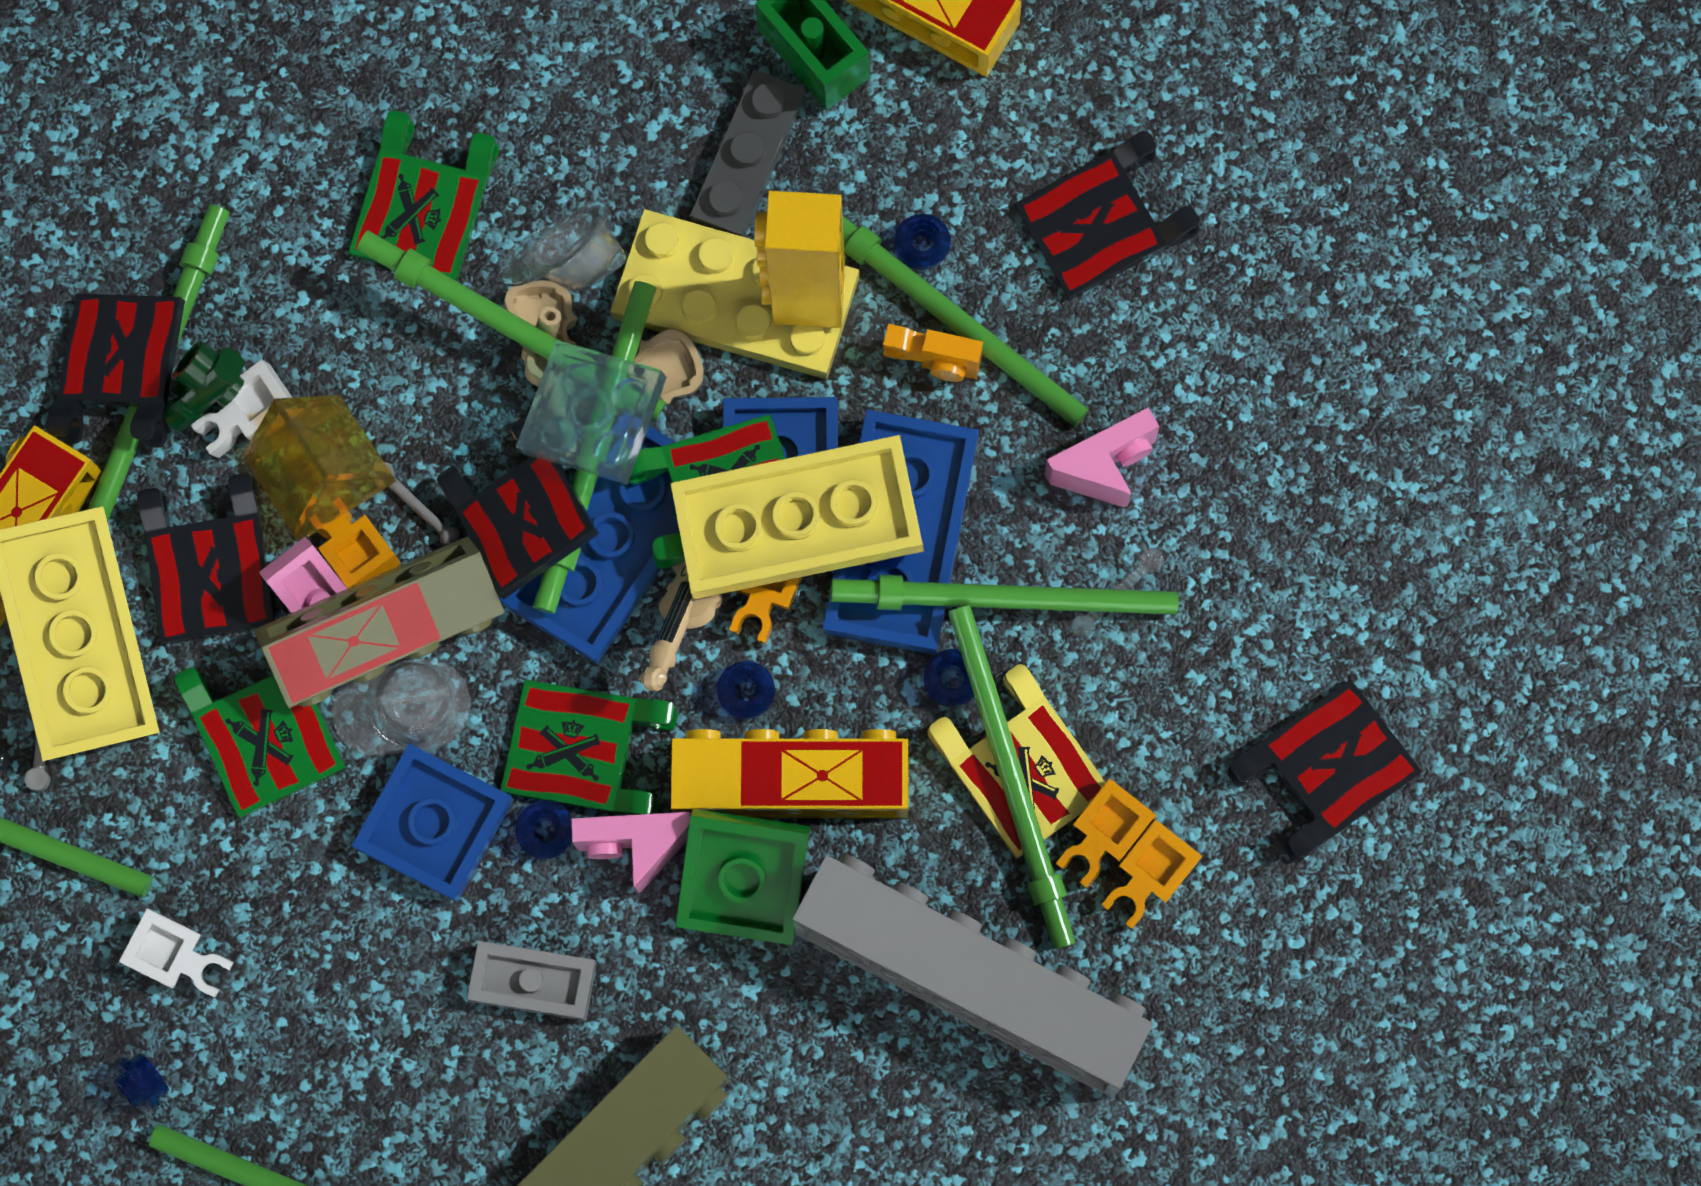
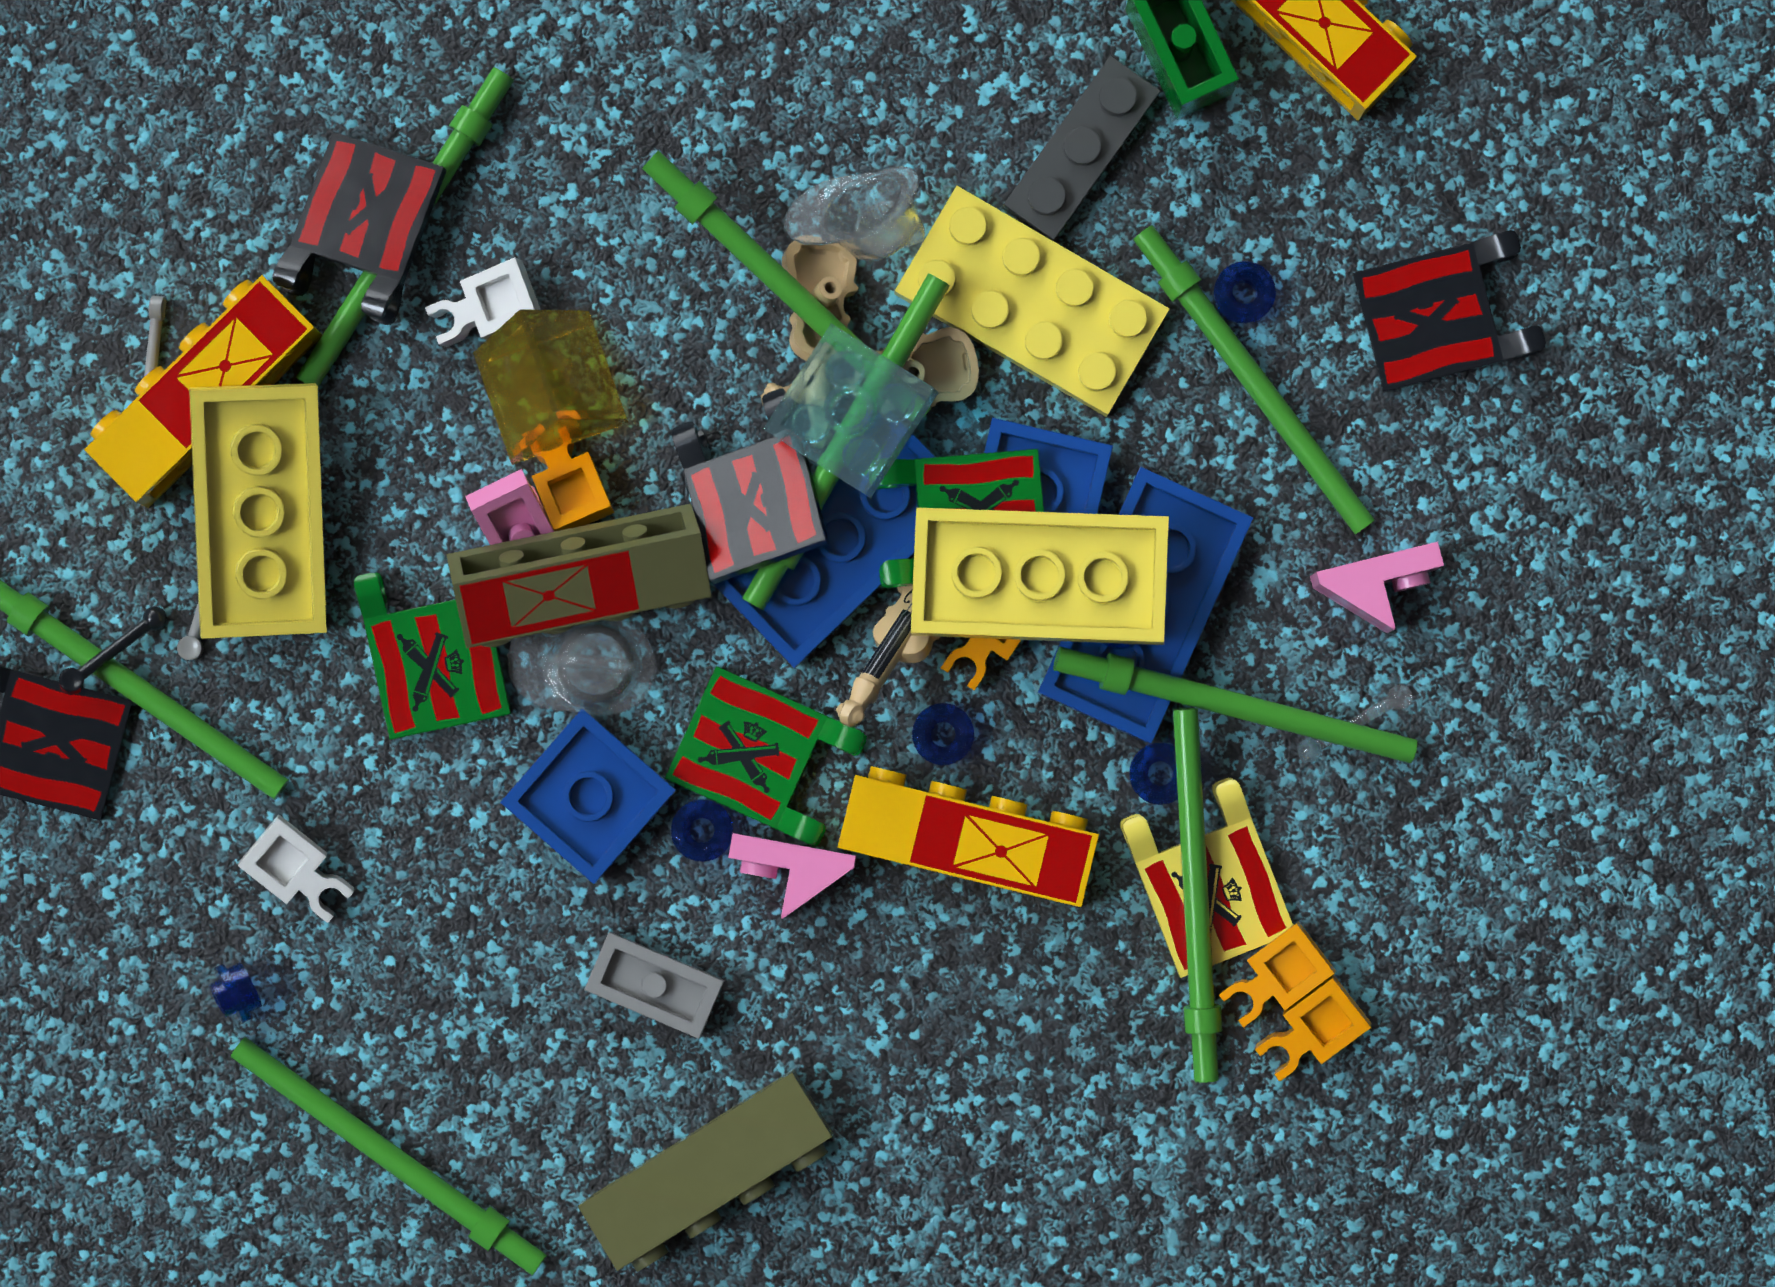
camera: 15 degrees right, 10 degrees up
(201, 380) = (448, 269): dark green plate -> none
(209, 569) = (412, 469): flag -> none
(424, 201) = (719, 122): flag -> none
(447, 534) = (671, 493): light grey hinge -> none
(742, 876) = (894, 933): green plate -> none
(802, 258) = (1113, 310): yellow brick -> none
(944, 354) = (1239, 428): light orange plate -> none
(971, 975) = (1105, 1100): light grey brick -> none
(1334, 761) = (1533, 957): flag -> none

